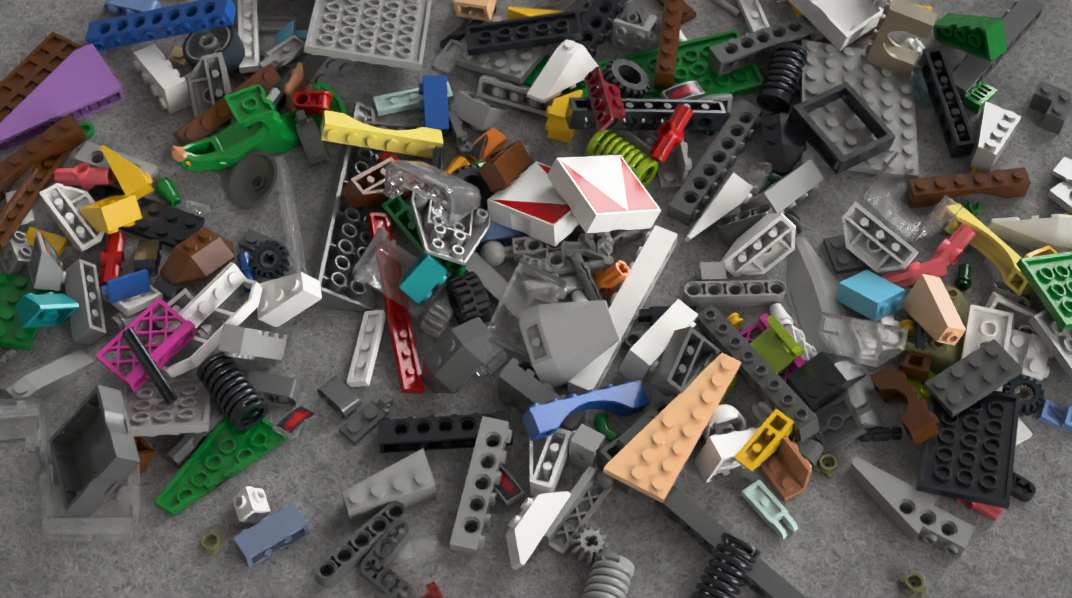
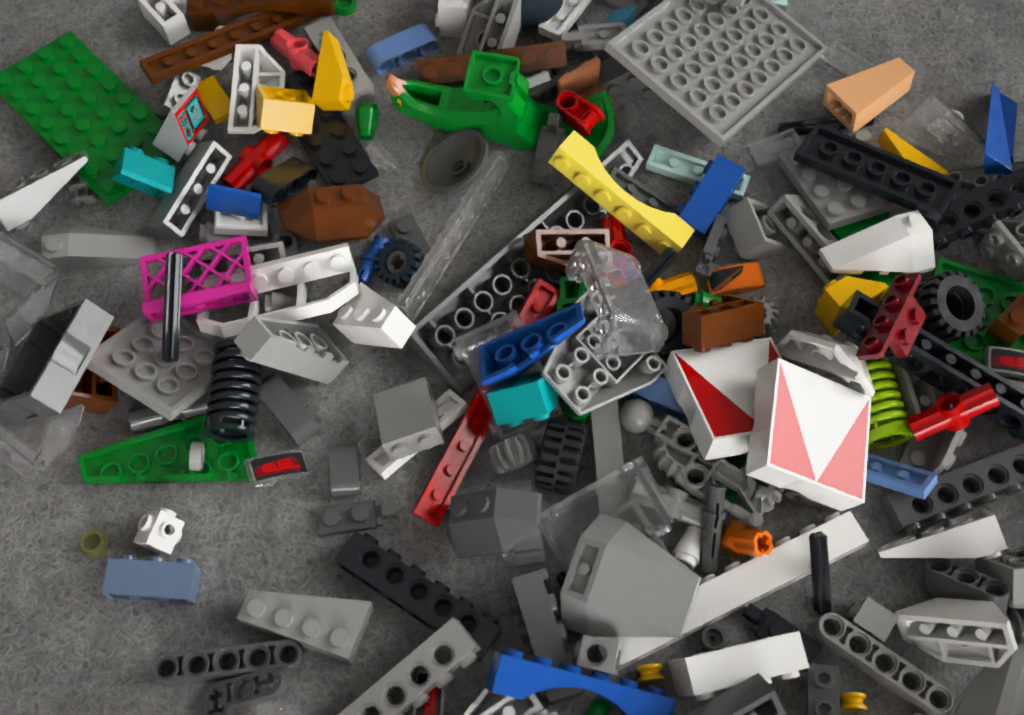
camera: 40 degrees right, 10 degrees up
(153, 134) = (401, 48): none -> medium blue beam
(238, 446) = (196, 456): none -> light grey tile
(356, 339) = (408, 419): none -> light grey brick
(400, 248) = (520, 349): none -> blue wedge
(580, 145) = (828, 359): none -> white wedge
(583, 375) = (611, 659): none -> light grey brick
(614, 379) = (650, 673): none -> yellow bush
(665, 266) = (820, 572): none -> black axle
(670, 188) = (900, 476): none -> medium blue plate

